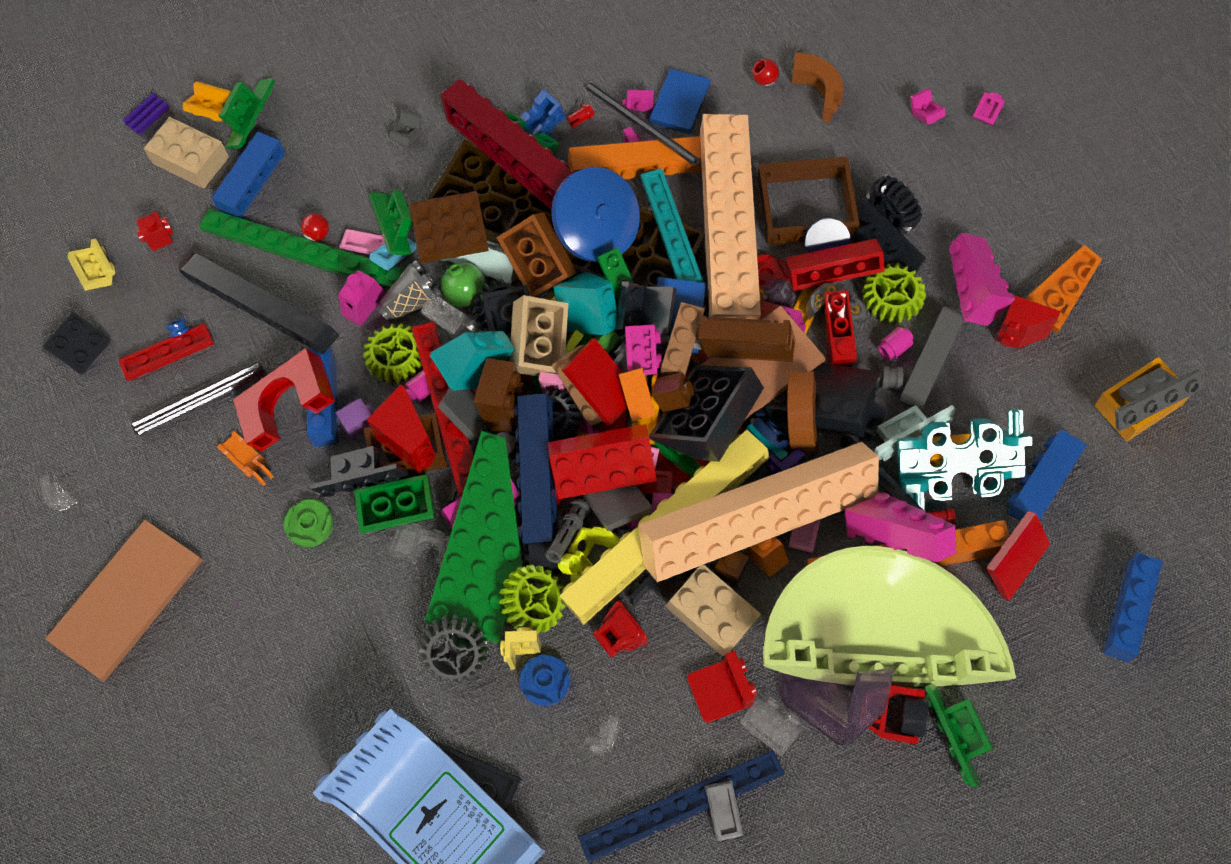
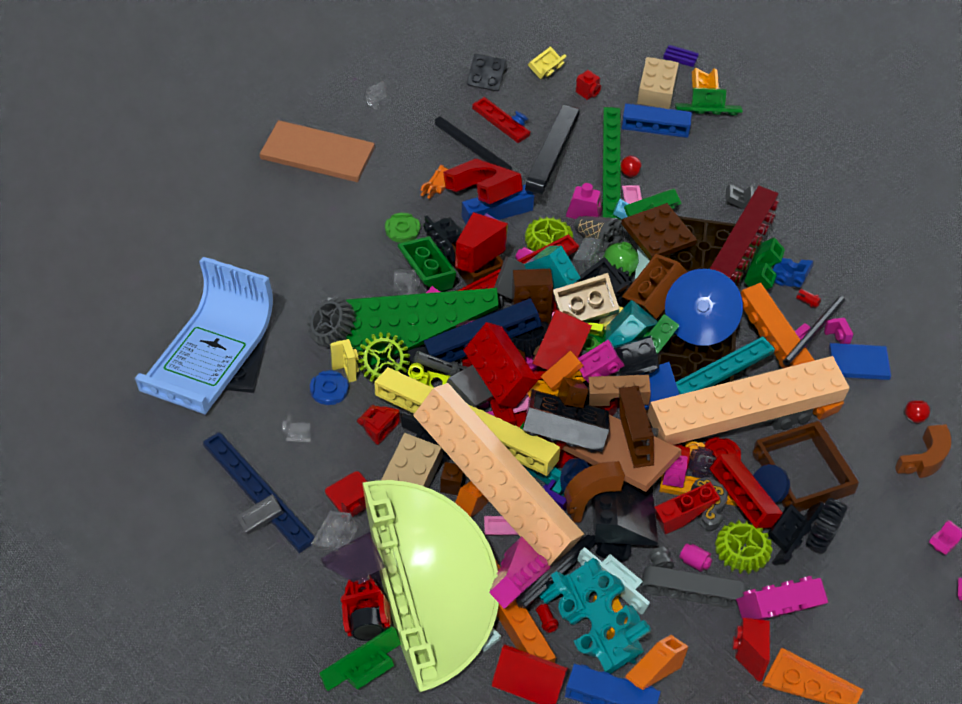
camera: 65 degrees right, 15 degrees down
(1044, 436) = (658, 663): none -> orange slope

